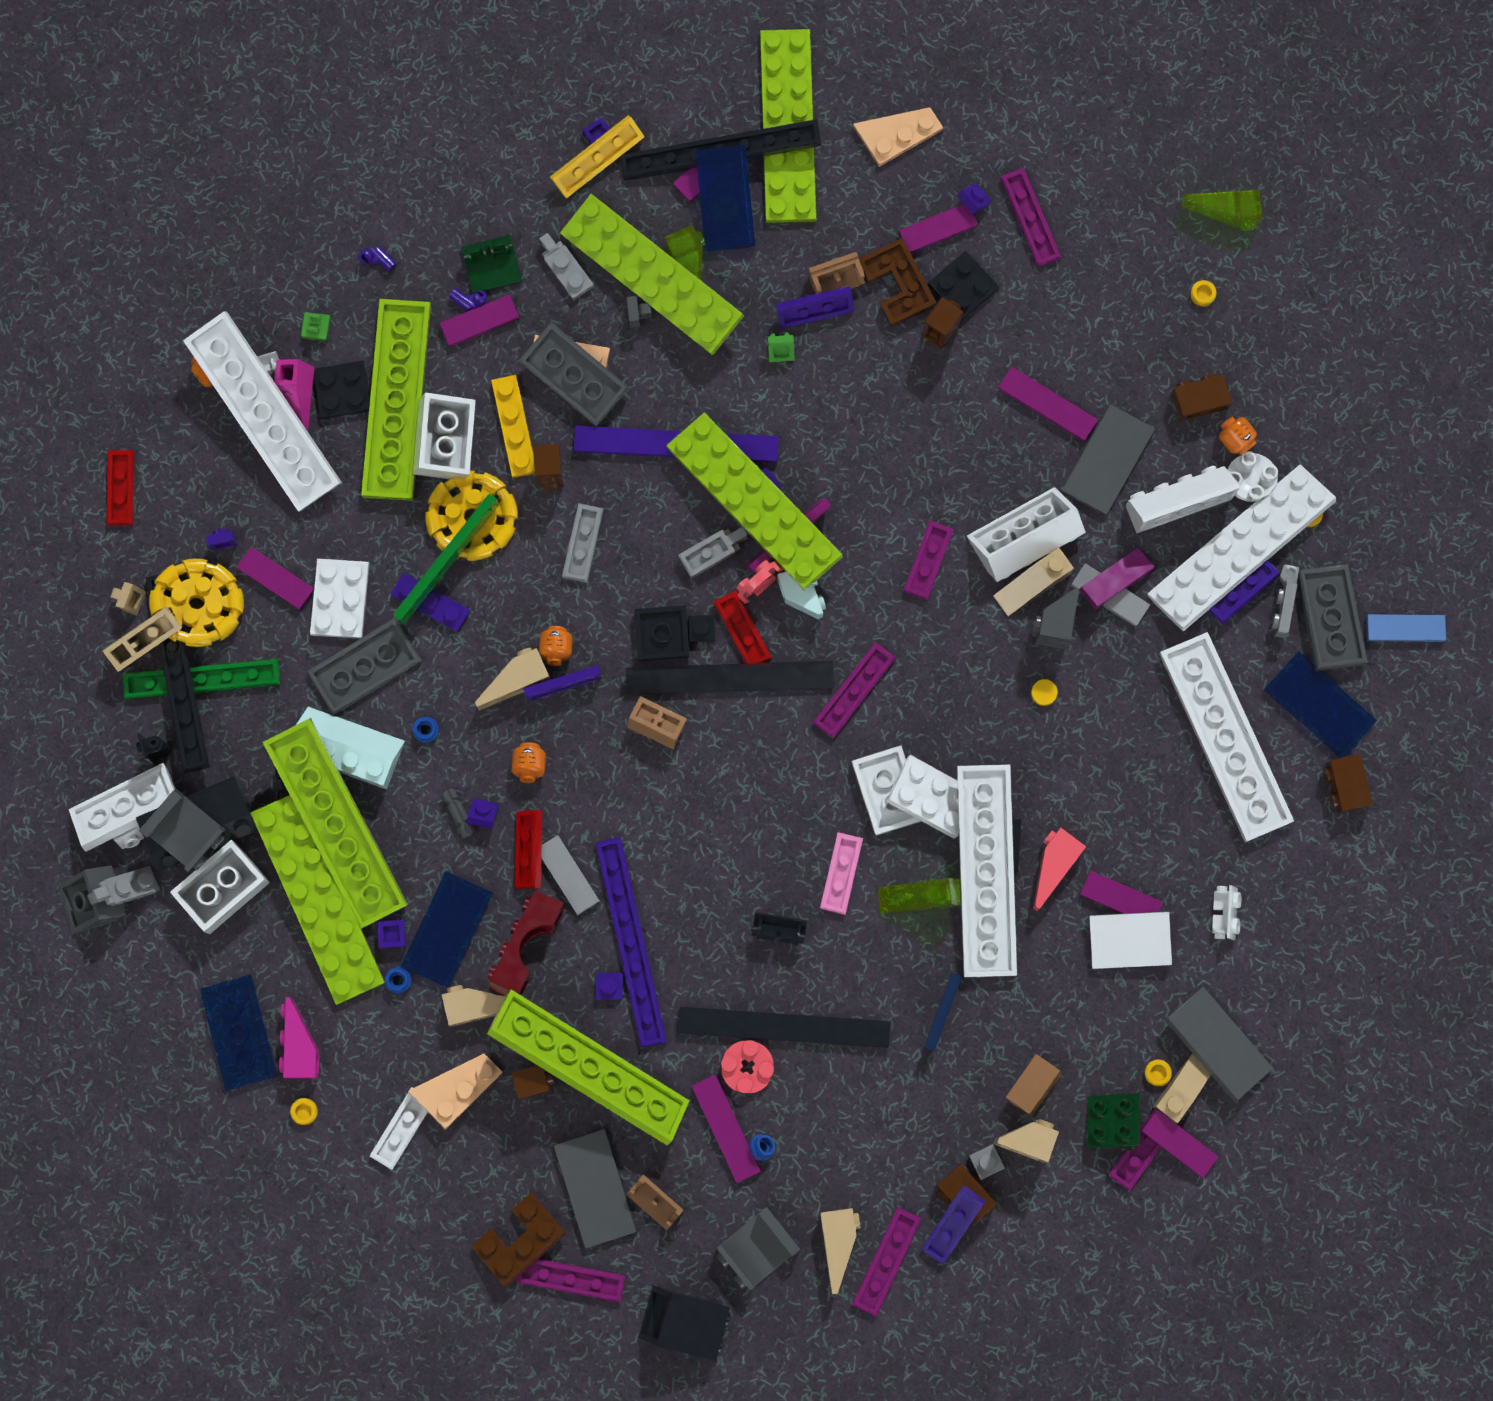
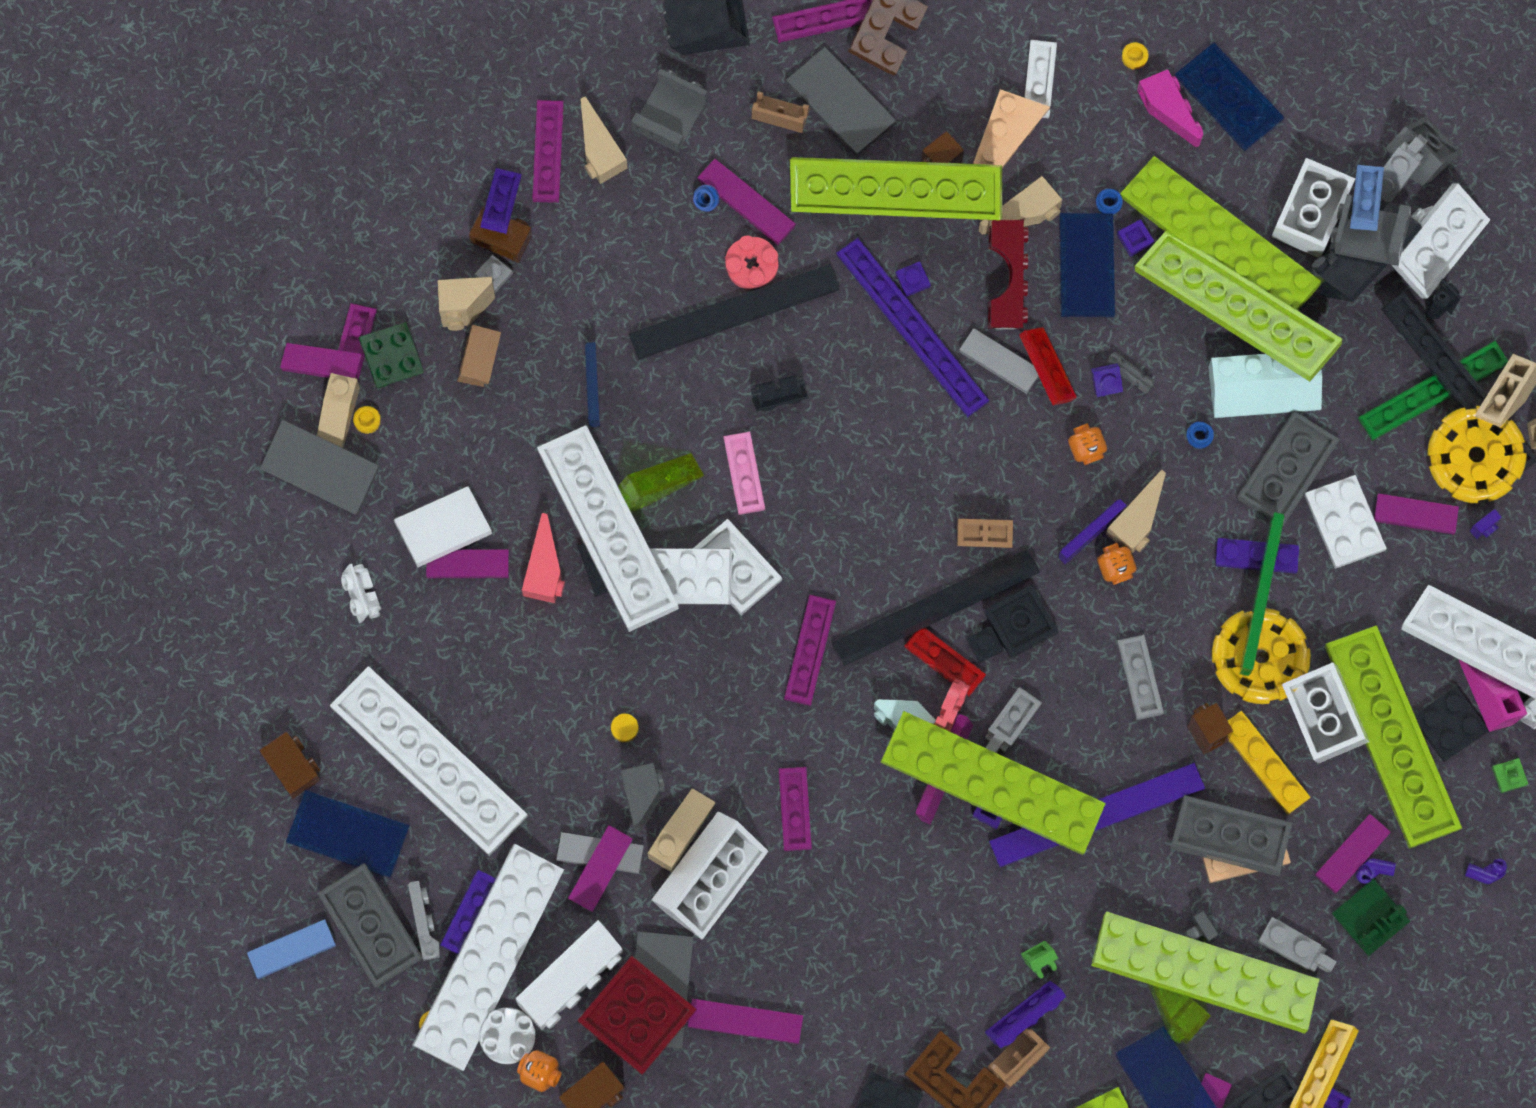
camera: 155 degrees right, 5 degrees down
(169, 867) = (1367, 197): none -> medium blue tile
(942, 322) = (888, 1050): reddish brown brick -> none
(1138, 442) = (637, 1015): none -> dark red plate

